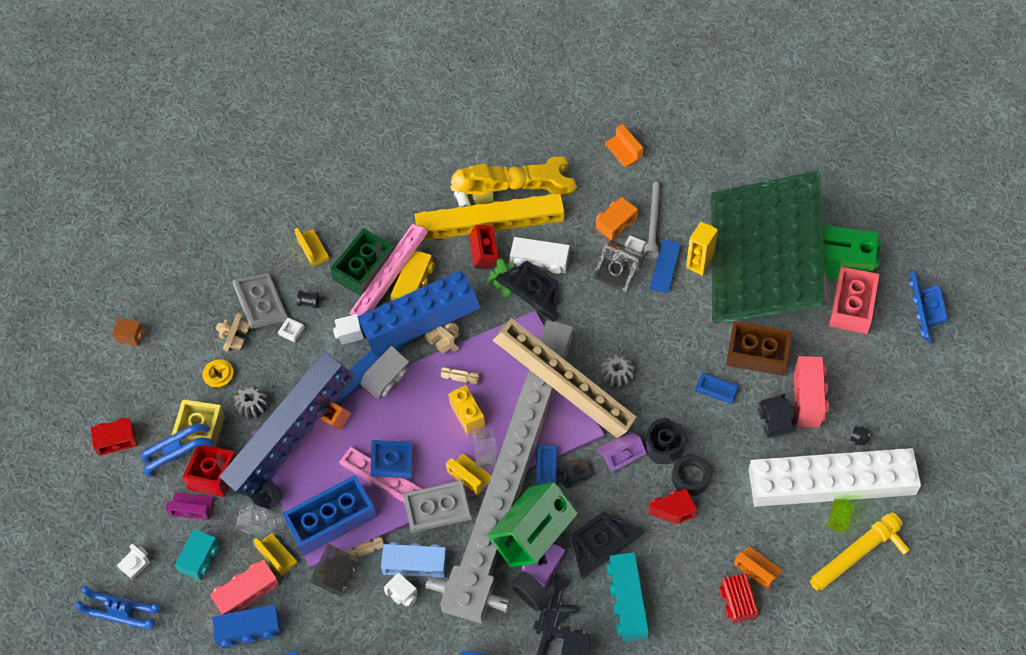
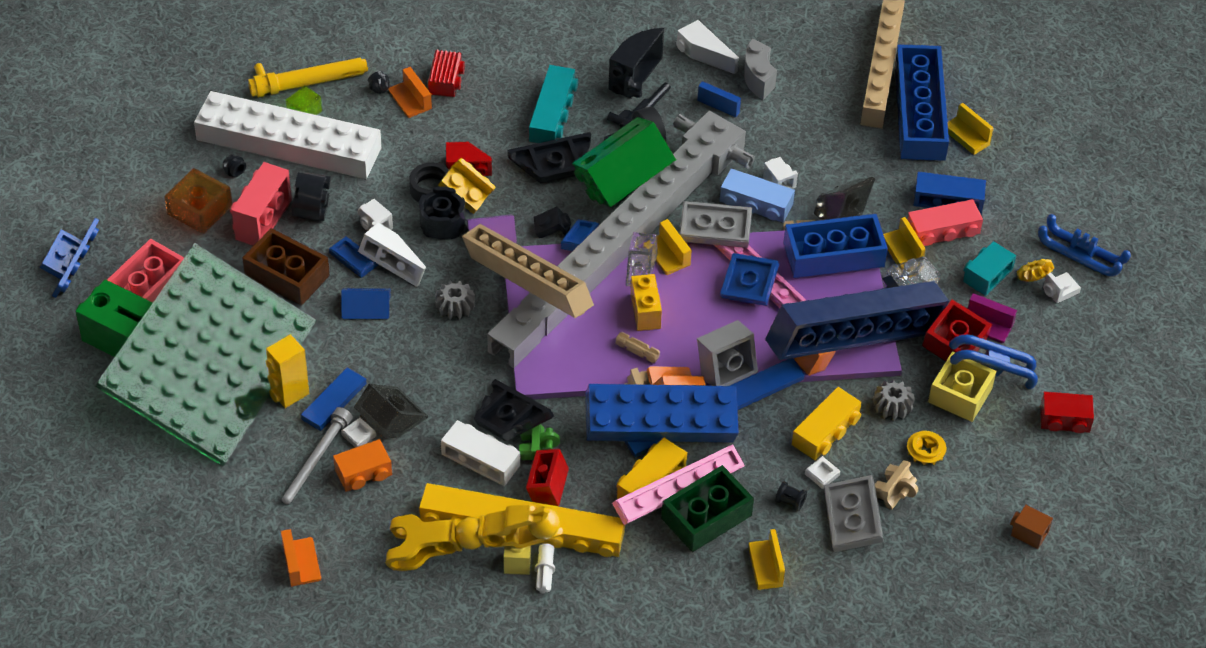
camera: 165 degrees left, 10 degrees down
(148, 569) = (1035, 270): none -> yellow gear
(297, 361) = (827, 423): none -> yellow brick
(348, 329) = (752, 441): white brick -> none
(419, 347) = (673, 376): none -> orange panel
(659, 474) = (468, 184): none -> yellow bracket
(686, 350) = (365, 303): none -> blue panel
(694, 394) = (392, 253): none -> white slope
(717, 423) = (374, 213): none -> white brick
(791, 567) = (379, 82): none -> black plate
(862, 382) = (198, 200): none -> clear orange brick

